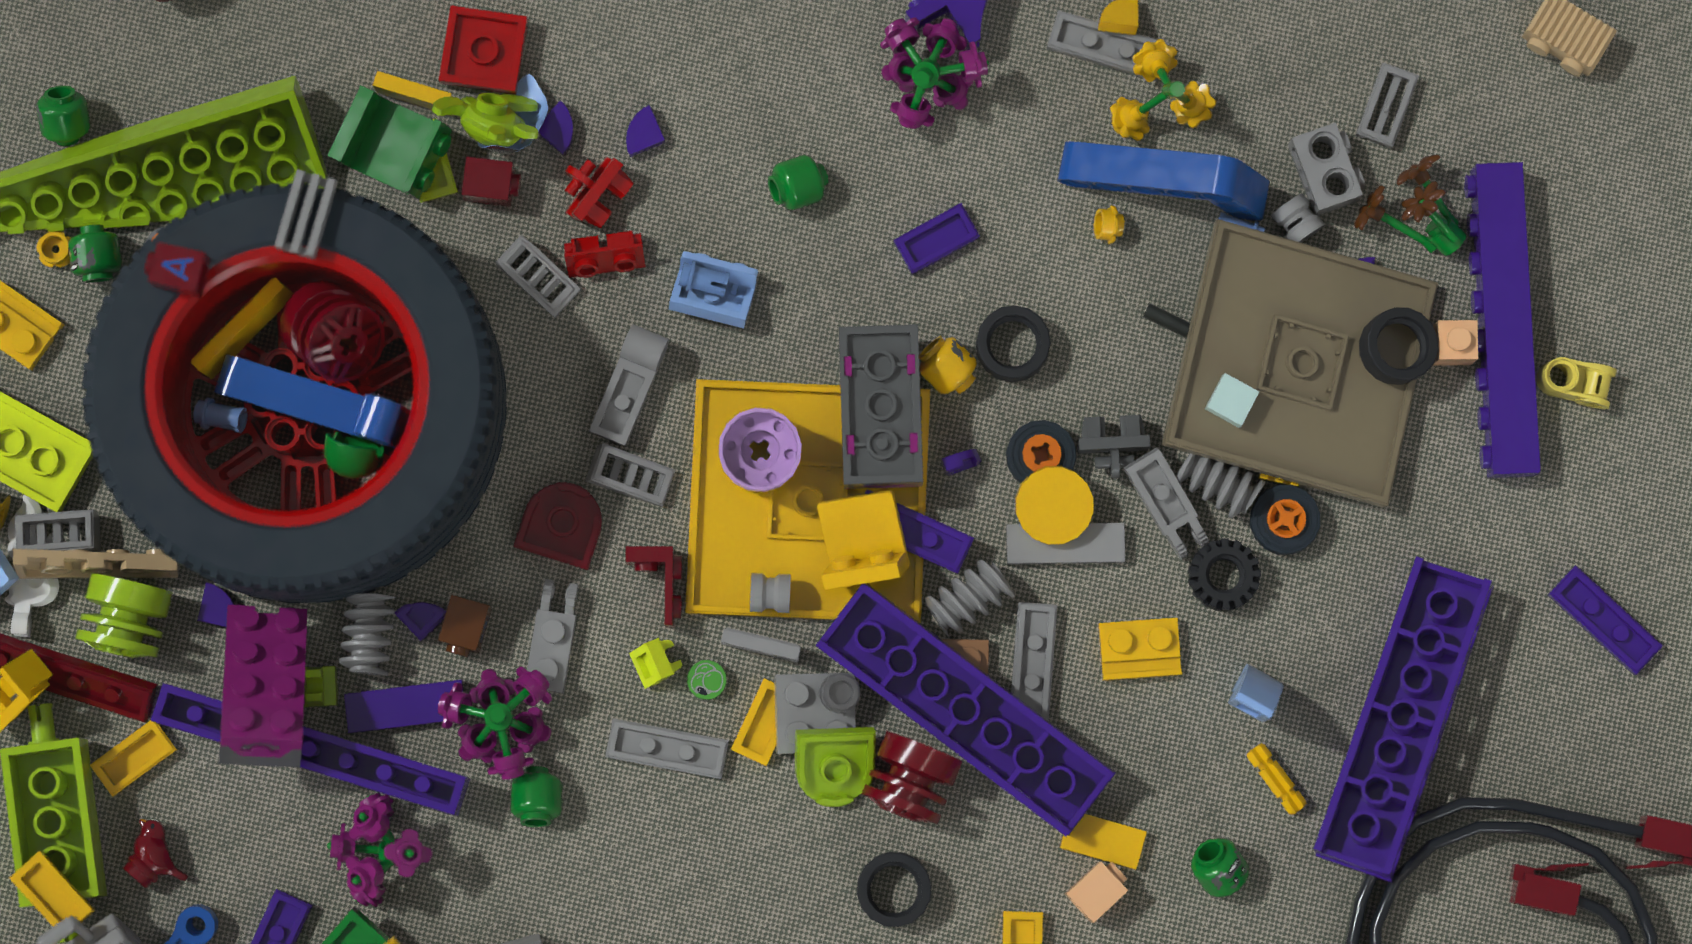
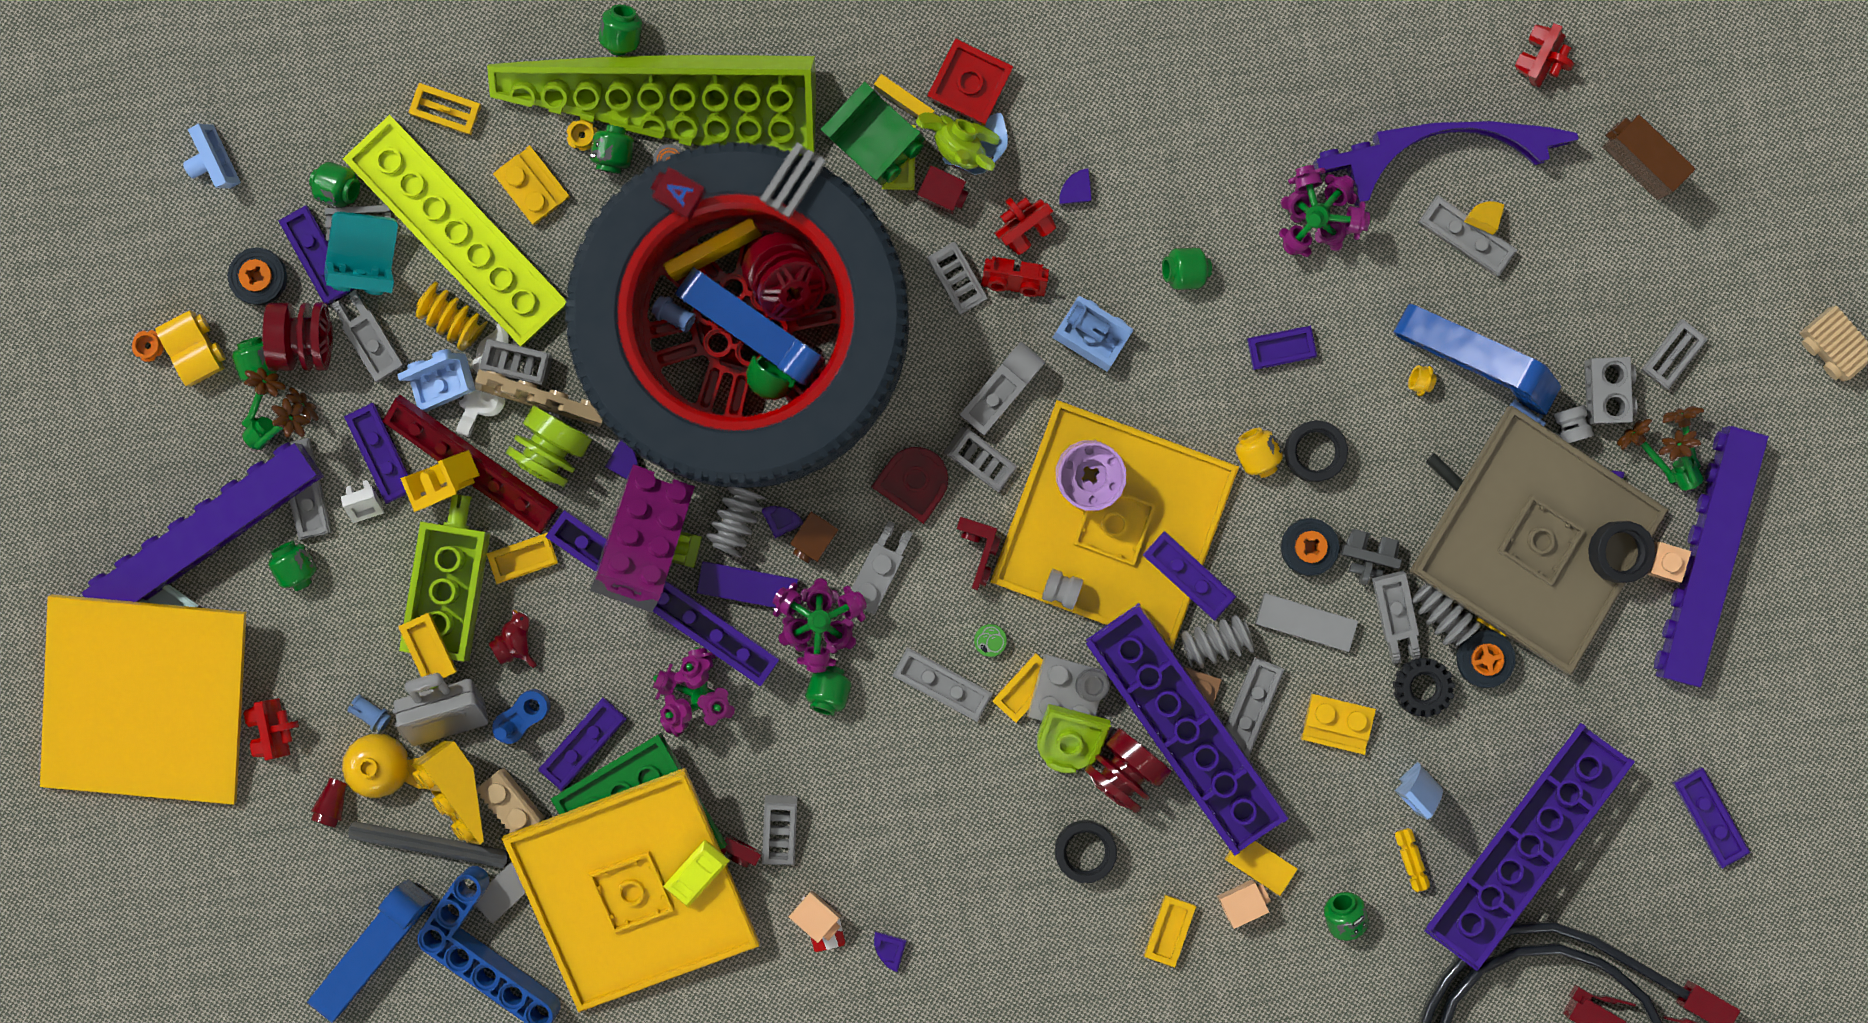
camera: 10 degrees right, 5 degrees up
(558, 128) = (1010, 164): dark purple tile -> none
(653, 663) = (952, 614): neon yellow tile -> none
(761, 644) = (1042, 627): light grey tile -> none
(862, 539) = (1148, 571): yellow bracket -> none
(880, 406) = (1196, 470): dark grey piece -> none
(960, 461) = (1244, 532): dark purple tile -> none
(1054, 505) = (1308, 591): yellow tile -> none
(1192, 101) = (1517, 303): yellow plant -> none
(1231, 400) = (1476, 554): light aqua tile -> none
(1584, 384) = (1757, 625): light yellow piece -> none

